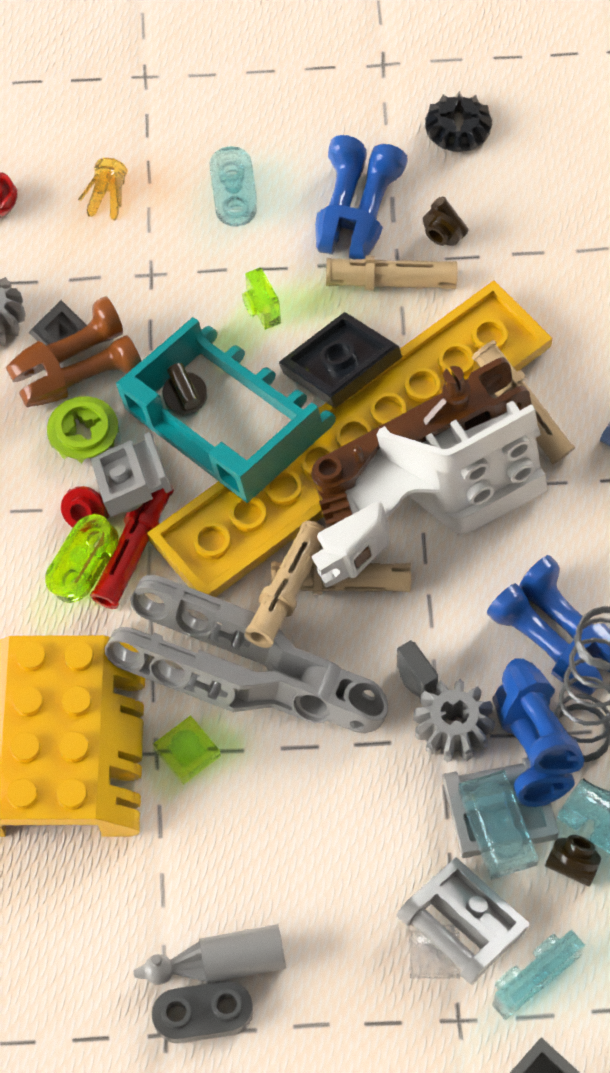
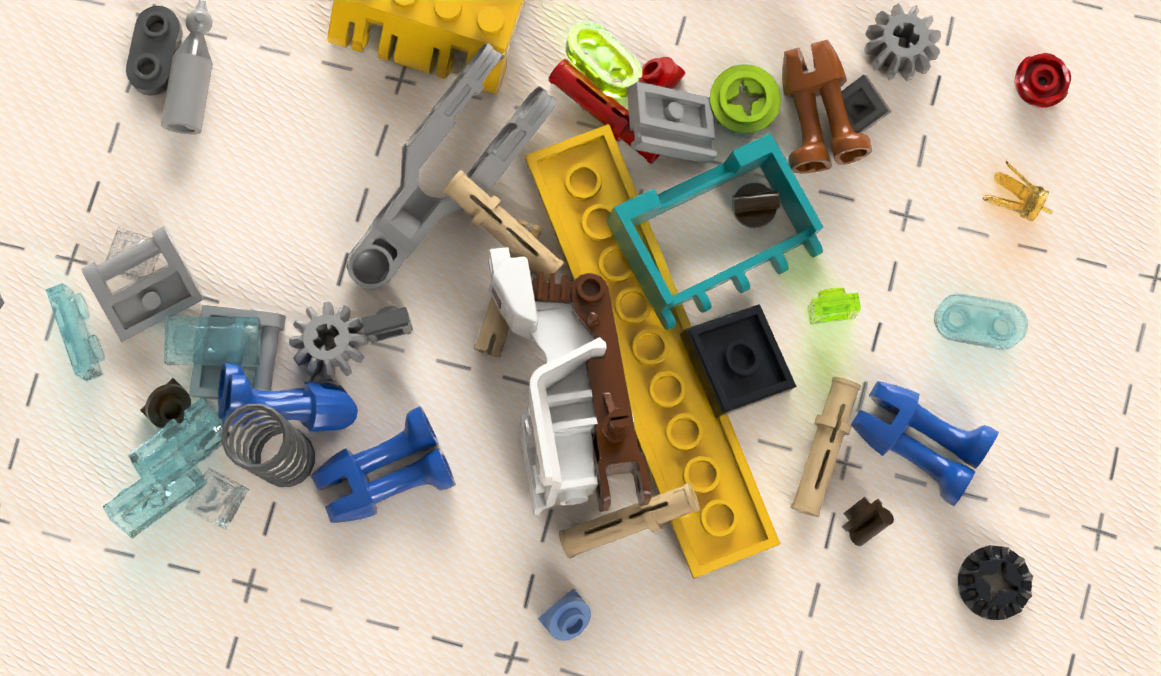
camera: 105 degrees right, 15 degrees up
(186, 749) = (391, 104): clear neon green plate -> none

